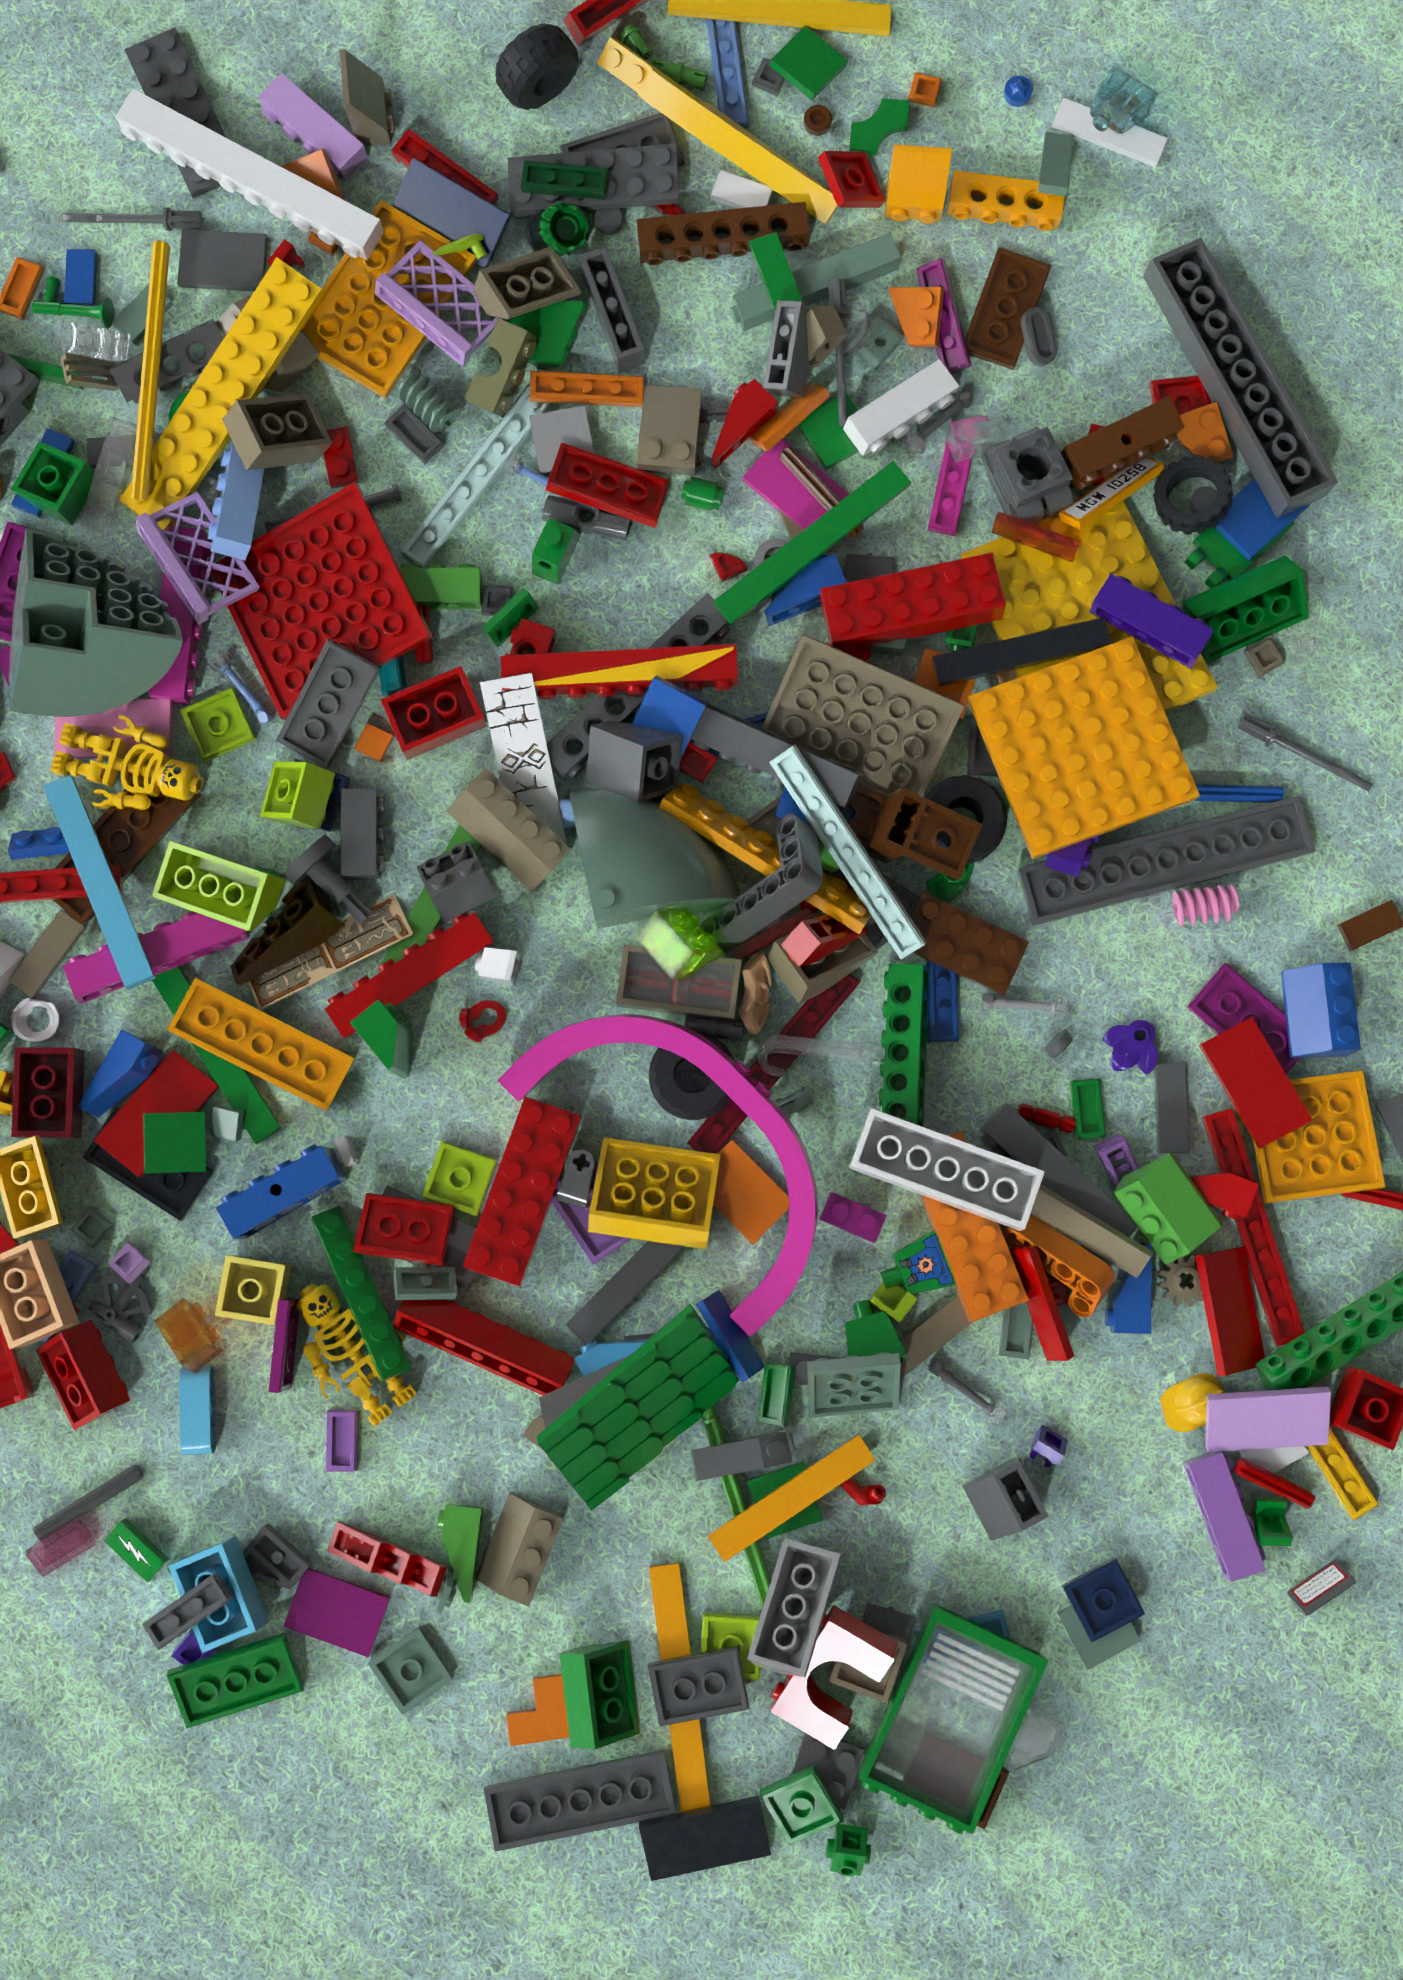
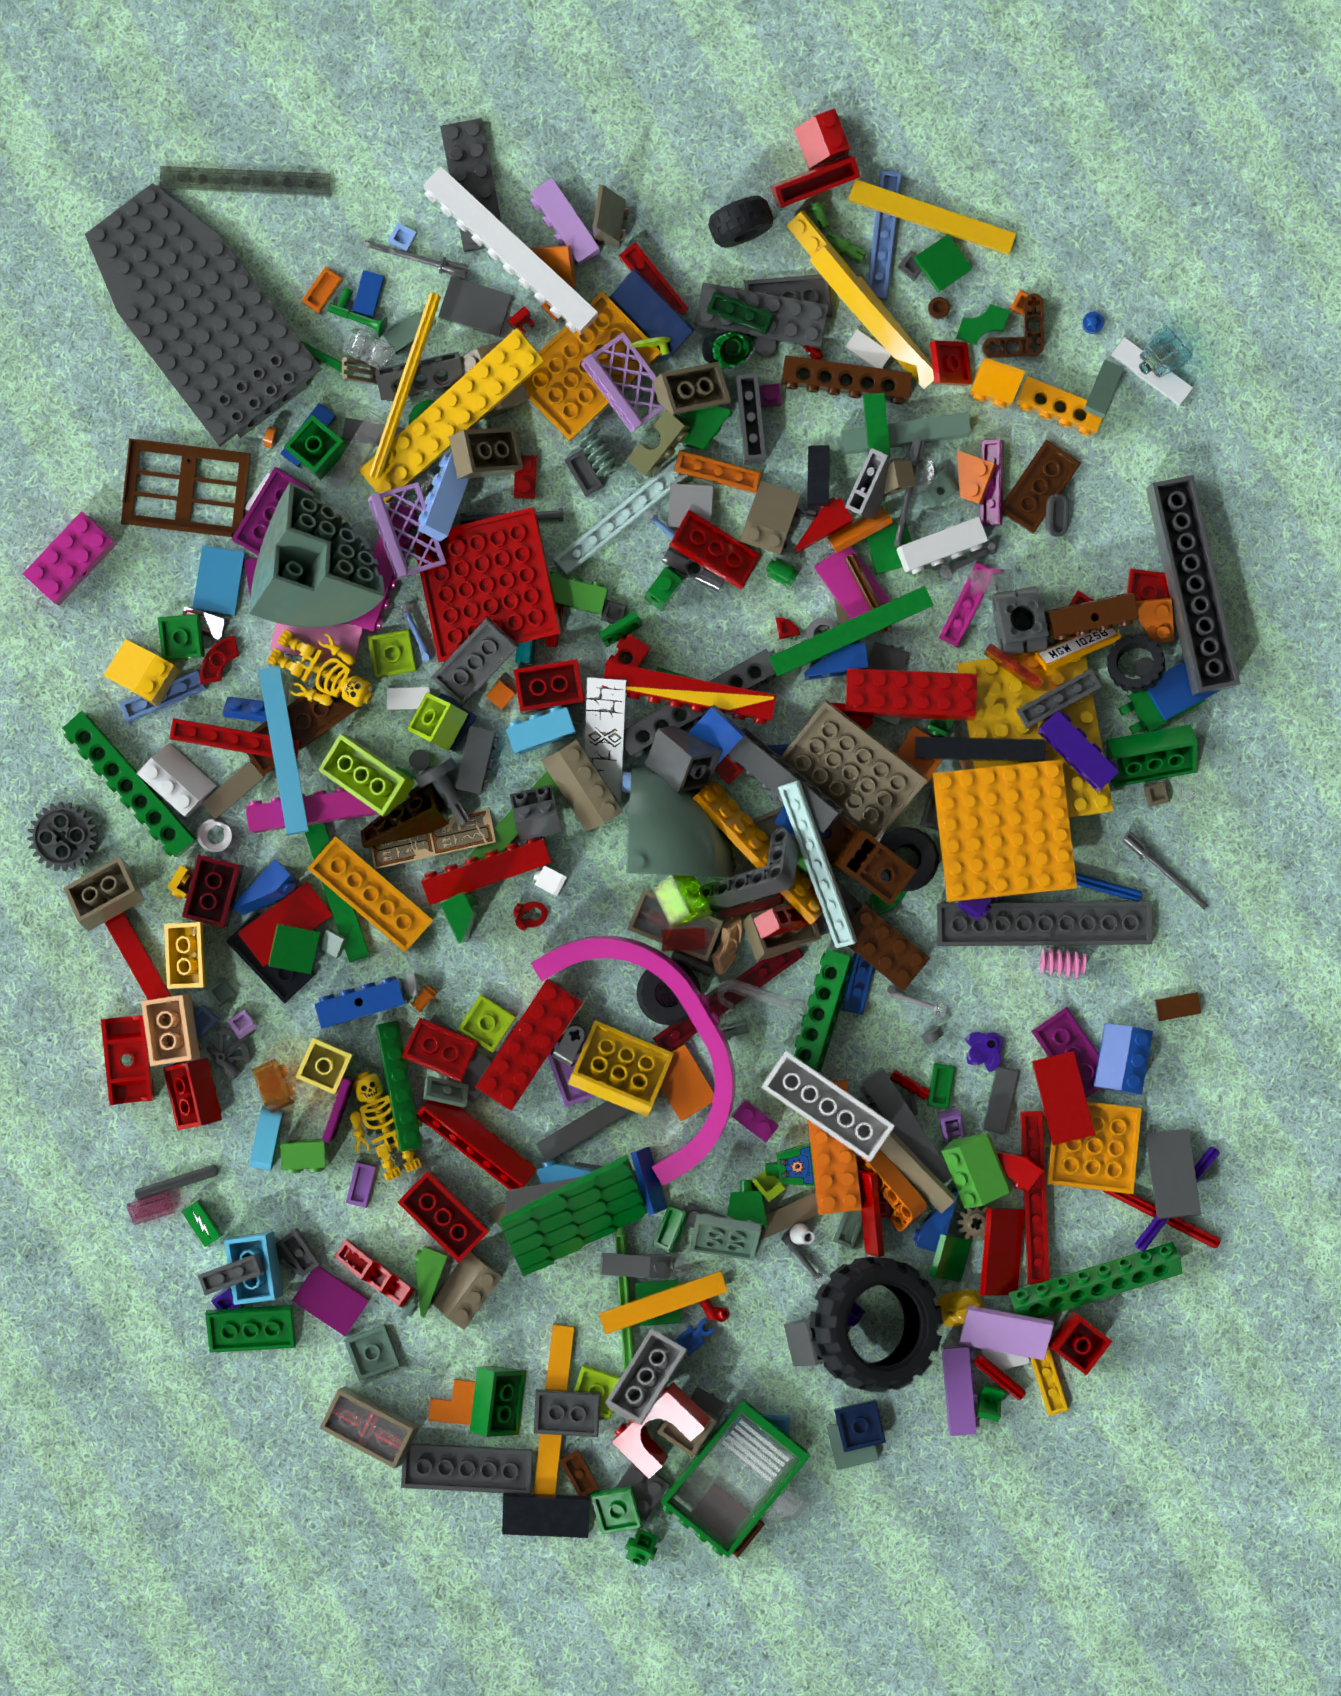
camera: 10 degrees right, 5 degrees up
(108, 197) = (402, 237): none -> light blue tile
(248, 777) = (405, 698): none -> white tile
(258, 1416) = (305, 1154): none -> bright green brick
(286, 852) = (420, 760): none -> dark grey tile
(367, 1165) = (424, 998): none -> orange pin
(430, 1777) = (369, 1427): none -> brick
(436, 771) = (540, 730): none -> medium azure brick
(463, 1454) = (444, 1216): none -> red brick
(631, 278) = (770, 395): none -> magenta plate
(694, 996) = (683, 939): none -> clear red tile
(718, 360) = (818, 476): none -> black tile
(736, 1766) = (579, 1473): none -> reddish brown plate
(843, 1537) = (692, 1338): none -> blue plate
(939, 132) = (1023, 342): none -> reddish brown beam
(955, 1356) = (801, 1234): none -> white cone
(1105, 560) = (1058, 698): none -> dark grey plate
(1149, 1443) = (919, 1331): none -> black tyre
(1164, 1336) = (950, 1258): none -> green tile
(1321, 1587) = (1012, 1455): slope -> none

